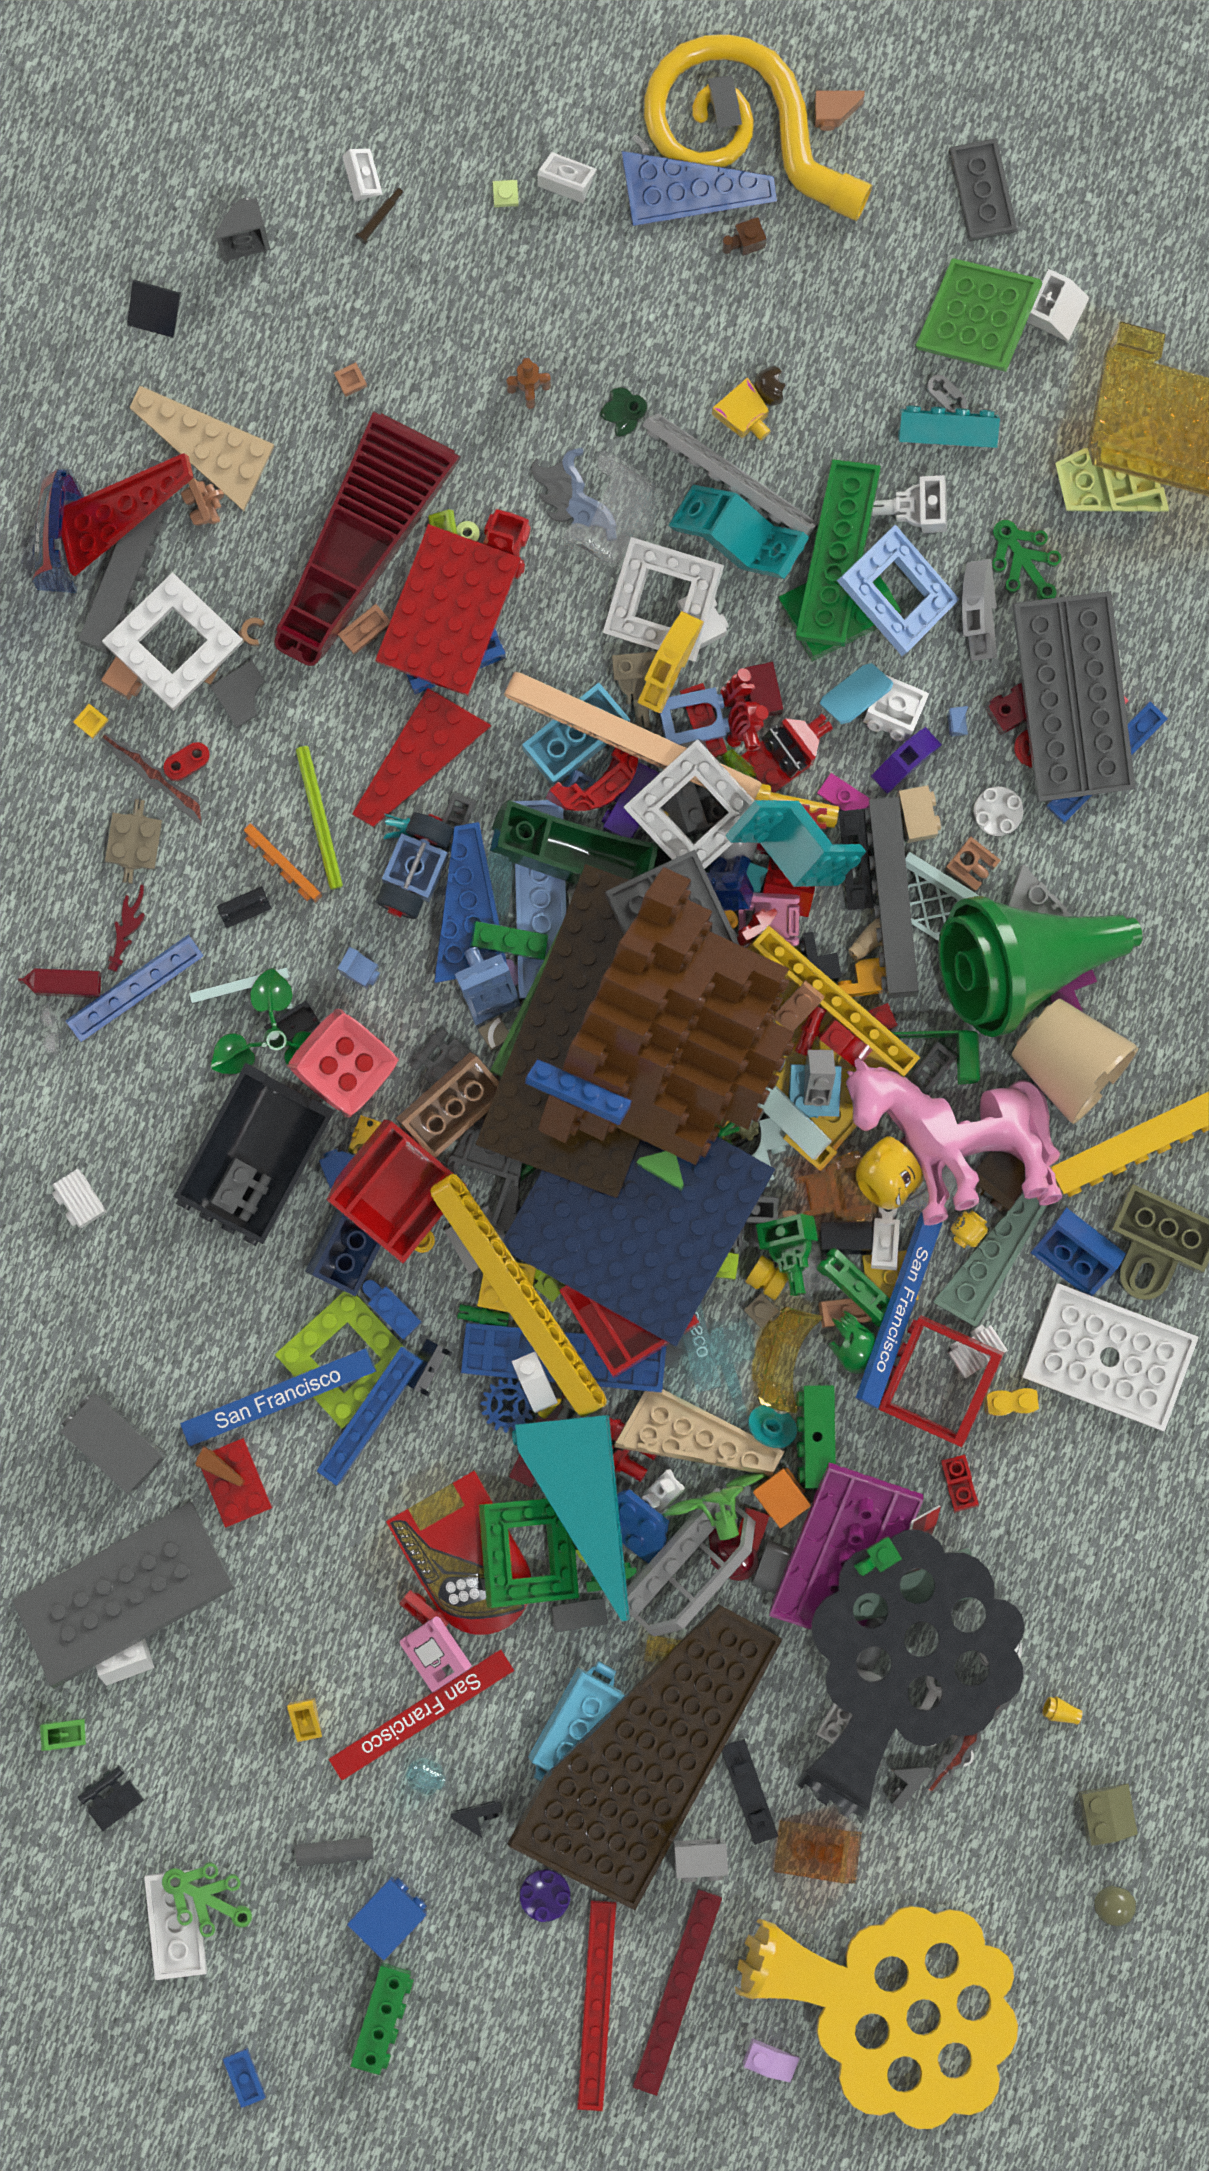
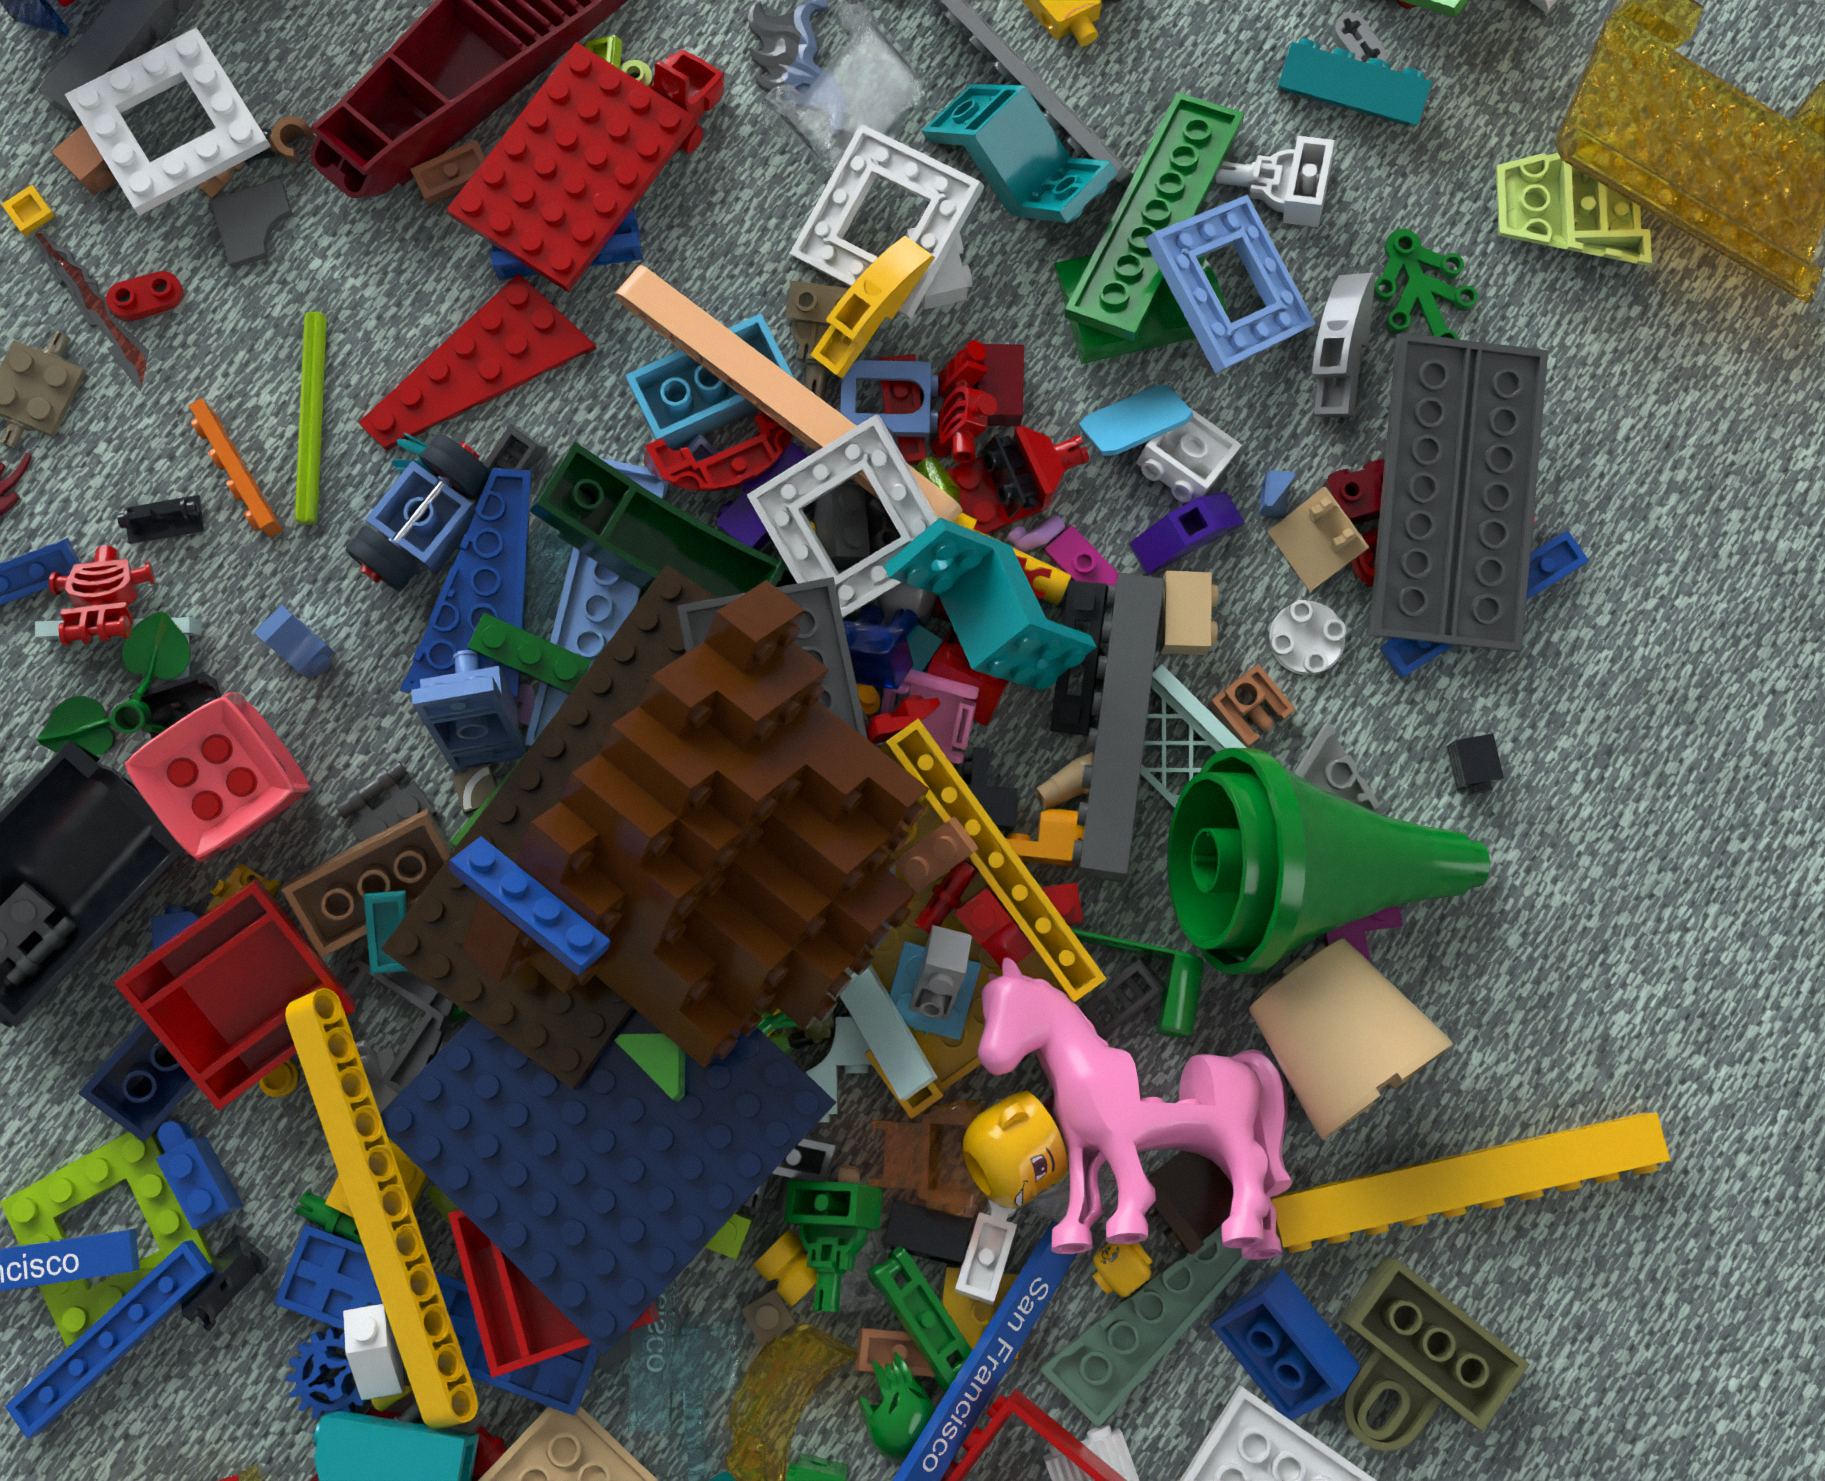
camera: 15 degrees right, 5 degrees down
(225, 966) = (99, 597): none -> red piece
(468, 1129) = (383, 915): none -> teal tile
(812, 784) = (1039, 536): none -> lavender arm
(991, 746) = (1318, 539): none -> tan plate
(1121, 868) = (1475, 763): none -> black brick

